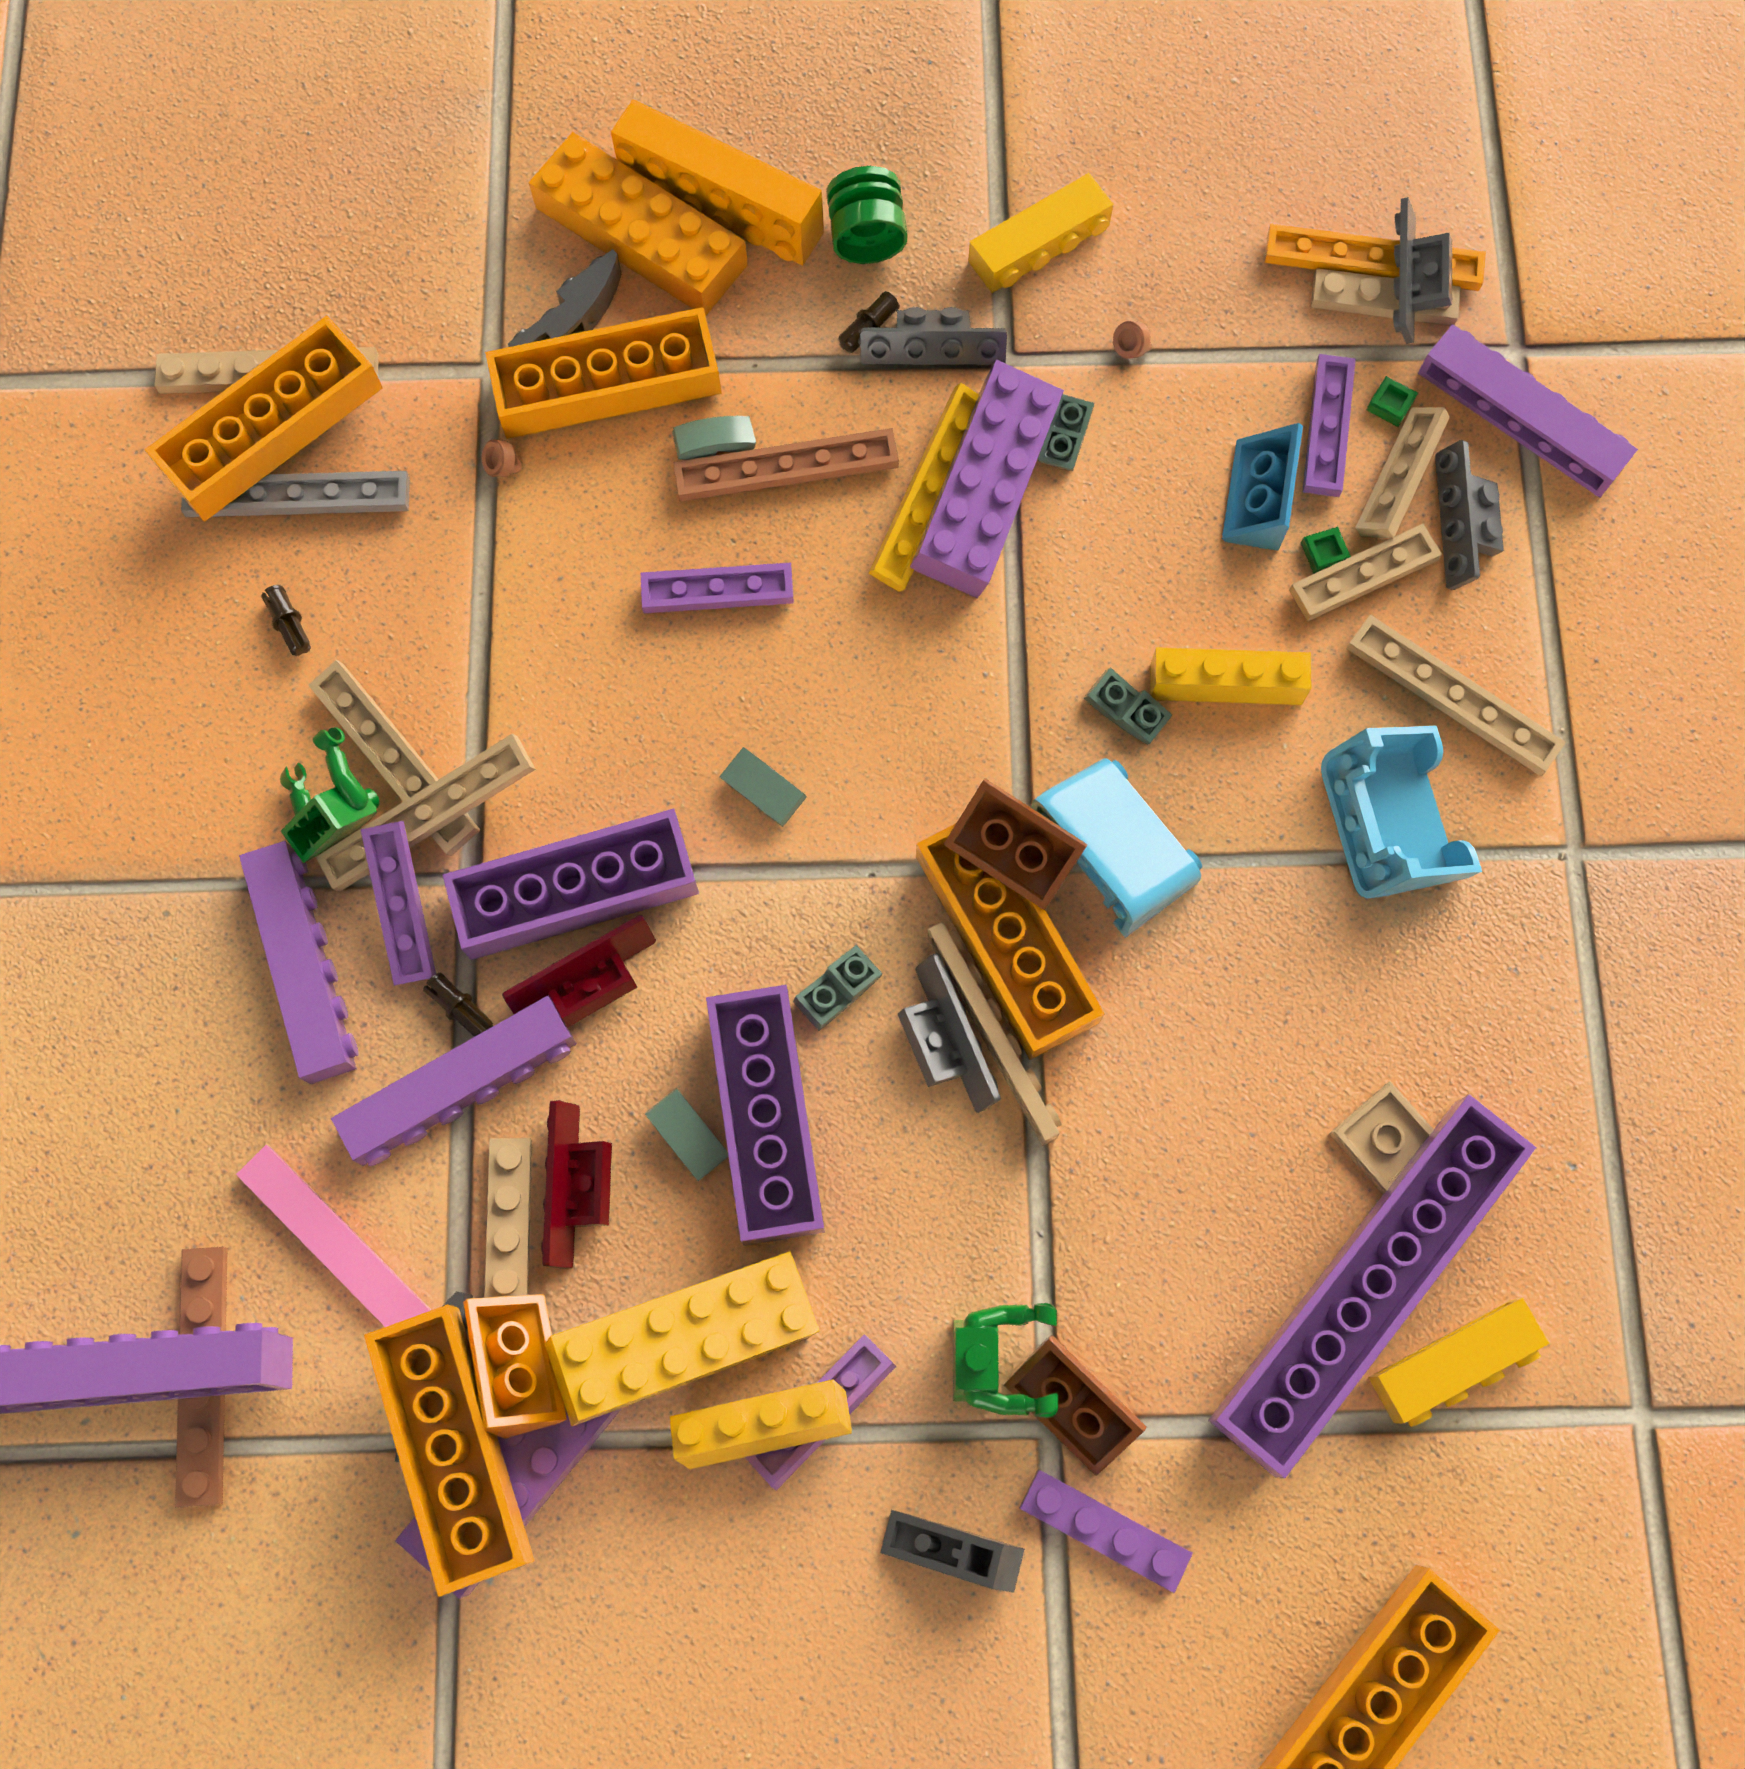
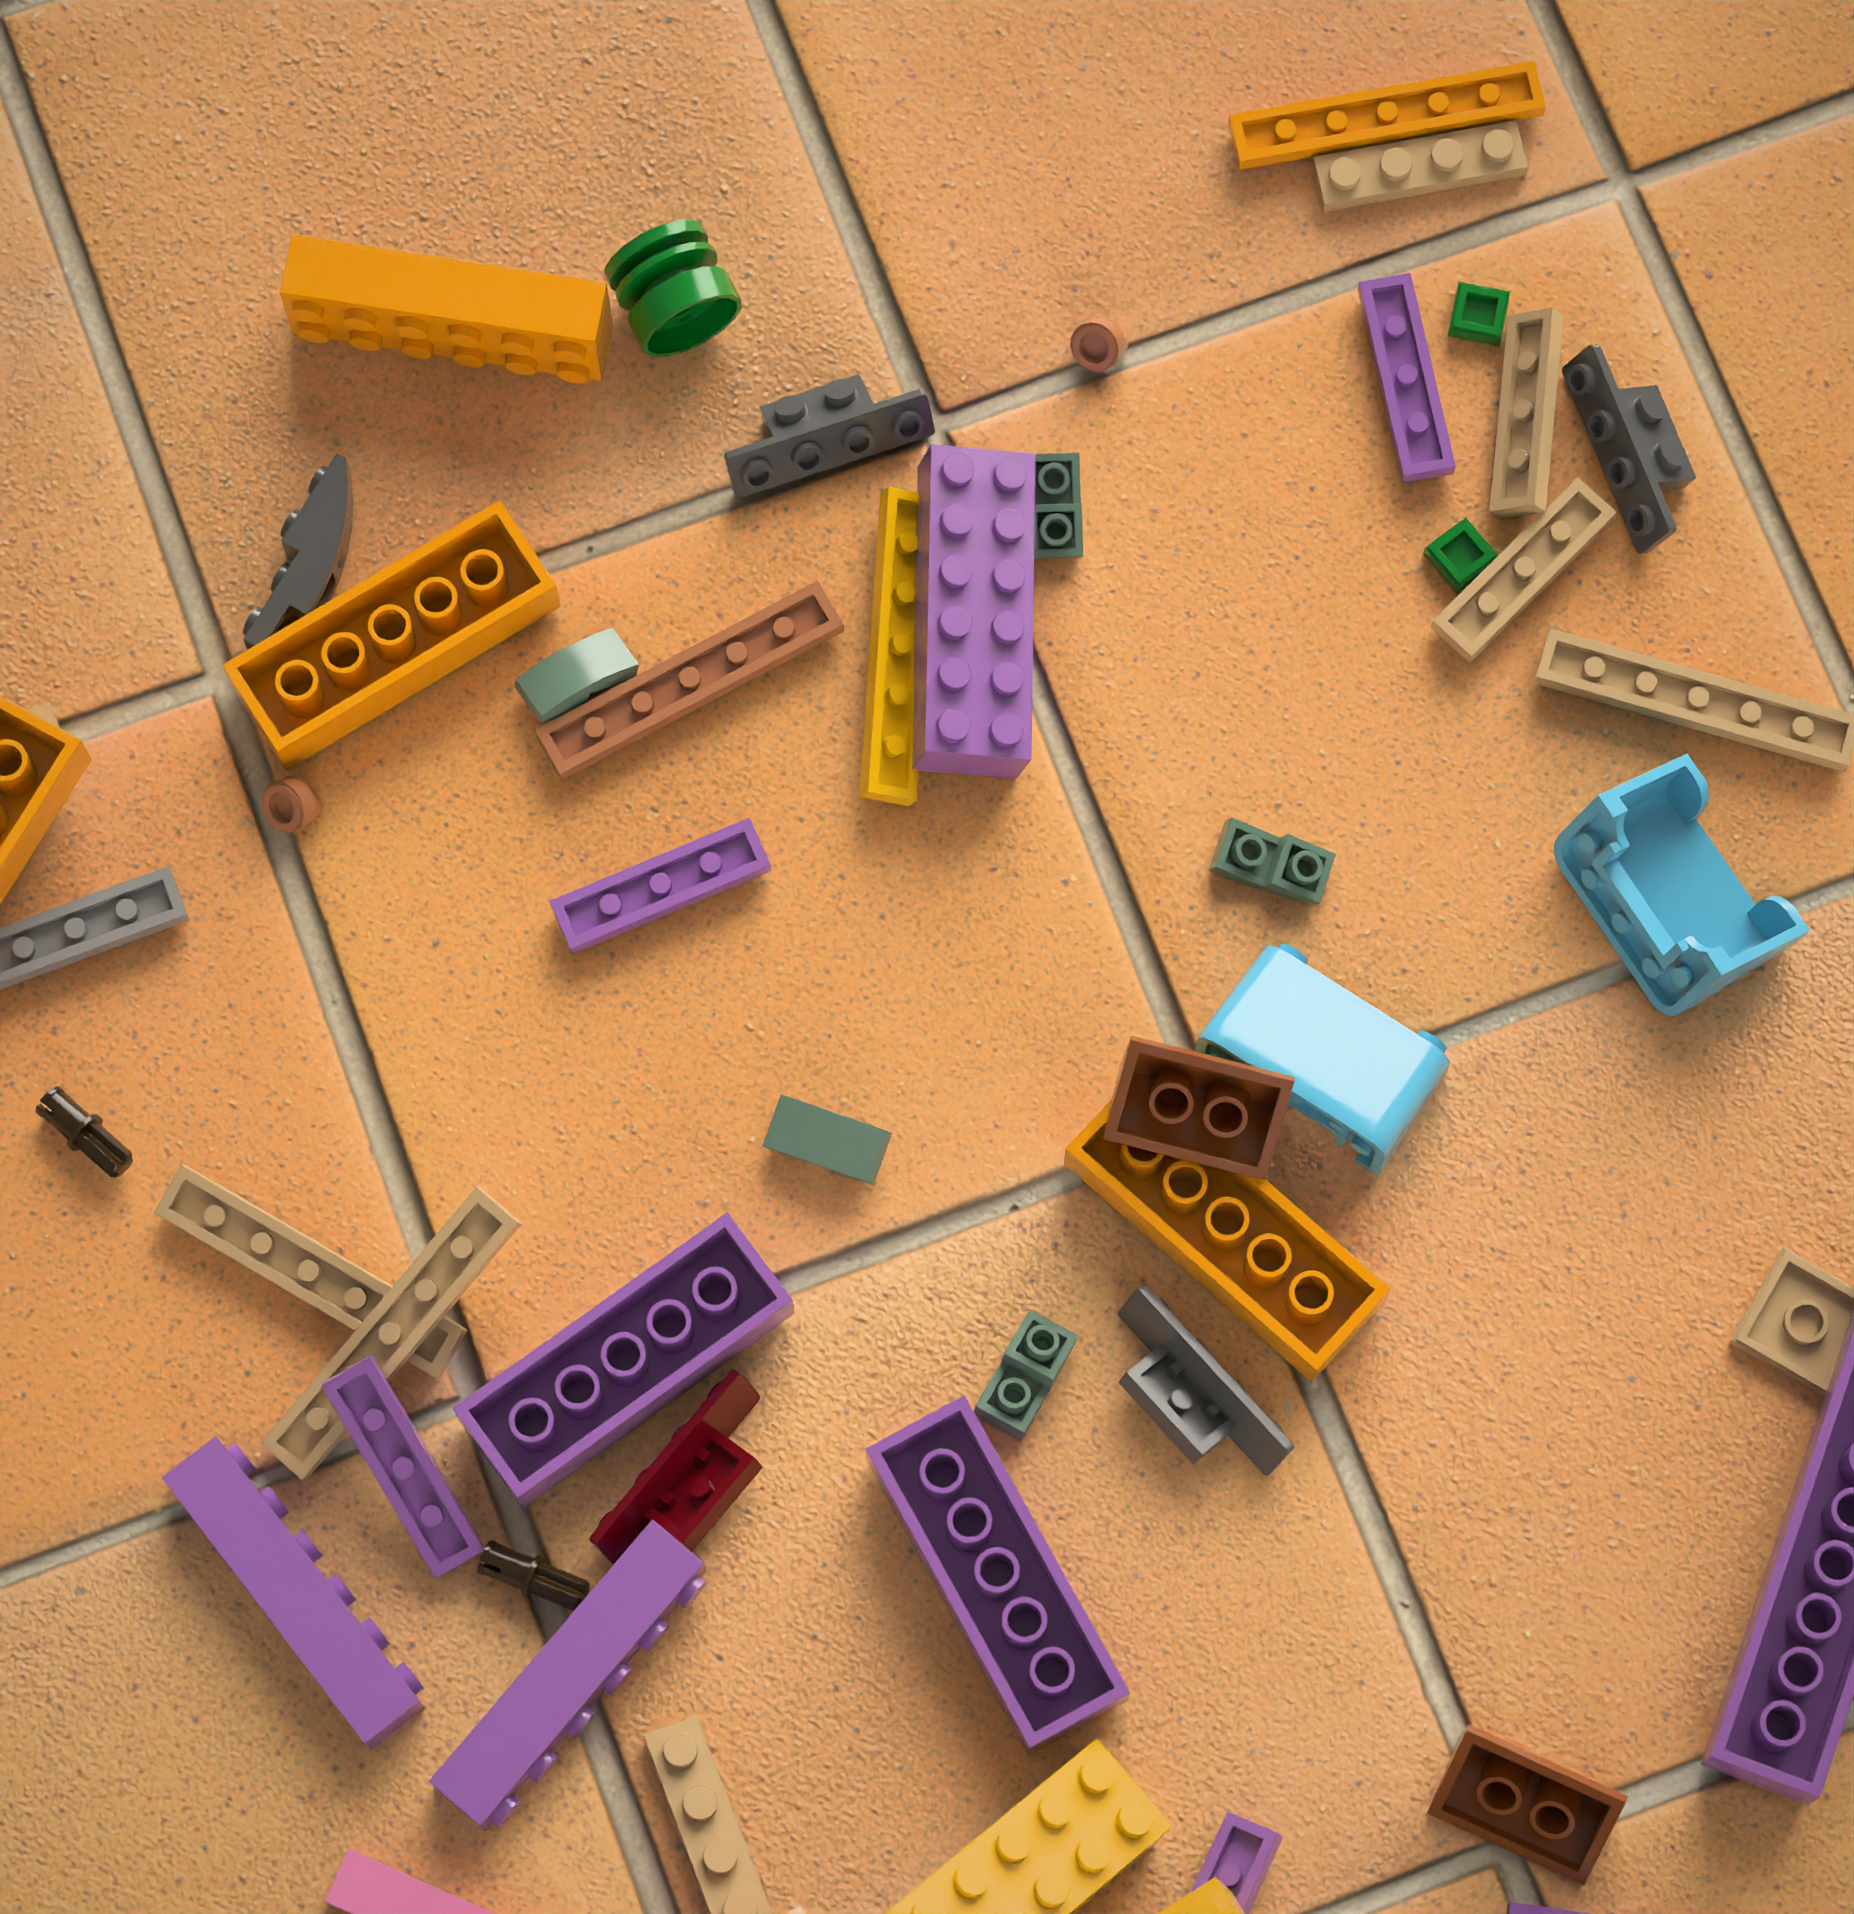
camera: 20 degrees left, 0 degrees up
(331, 814) = (271, 1379): green torso -> none
(575, 1184) = (782, 1753): dark red bracket -> none
(640, 222) = (353, 400): light orange brick -> none
(687, 1134) = (901, 1637): sand green slope -> none
(872, 317) = (727, 435): dark brown axle -> none
(978, 1361) = (1384, 1789): green torso -> none
(1001, 1046) = (1270, 1378): tan plate -> none
(1040, 233) = (919, 230): yellow brick -> none
(1230, 676) = (1393, 776): yellow brick -> none
(1262, 488) = (1347, 497): dark azure slope -> none
(1424, 271) = (1460, 121): dark grey bracket -> none
(1527, 410) = (1663, 269): medium lavender brick -> none

